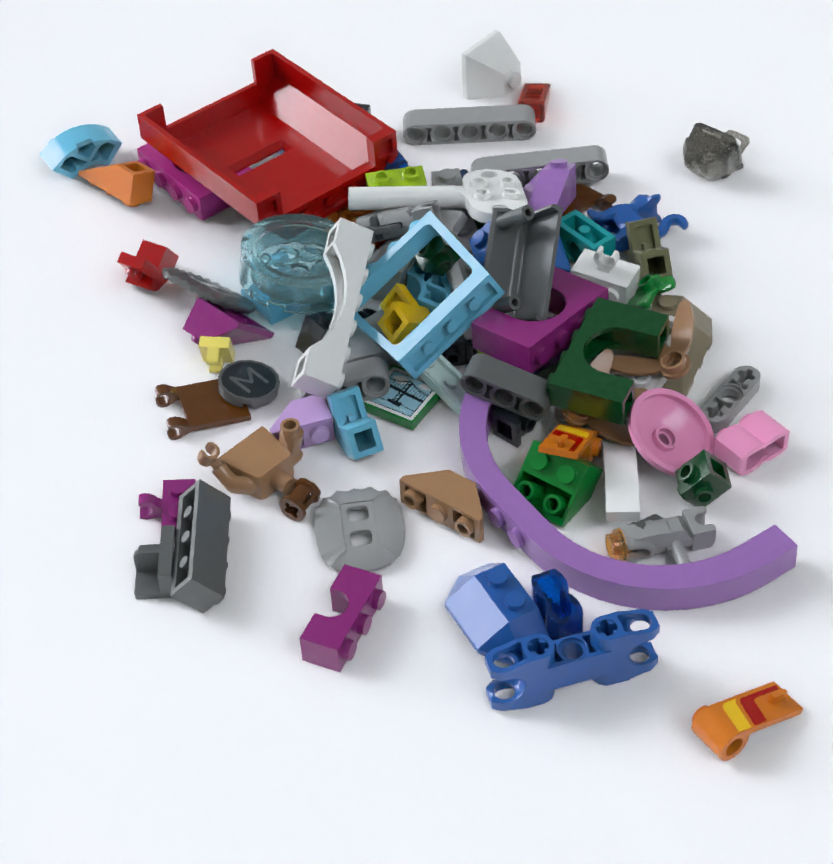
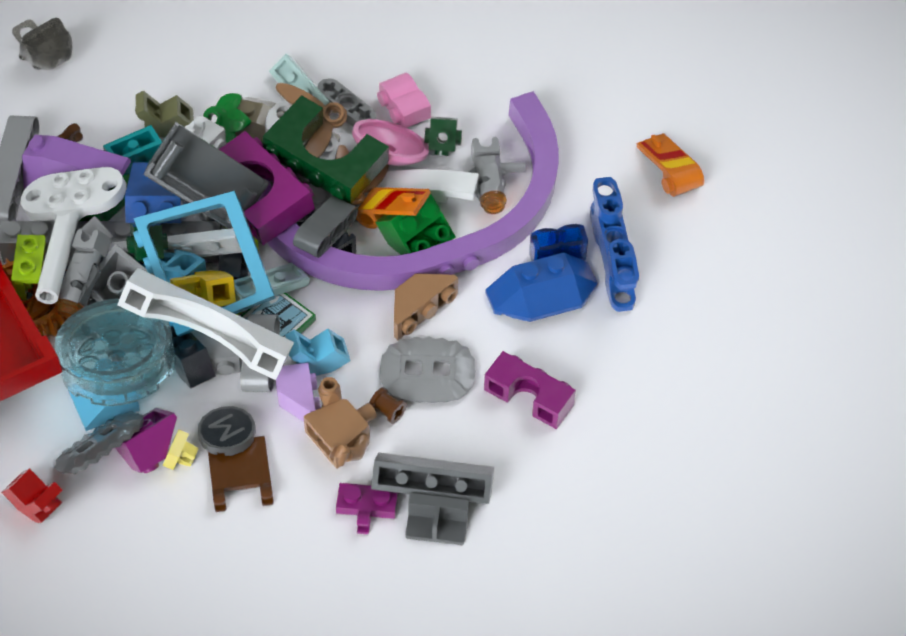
camera: 85 degrees left, 10 degrees up
(640, 207) = (115, 122): blue animal -> none
(737, 353) = (289, 72): none -> light aqua tile

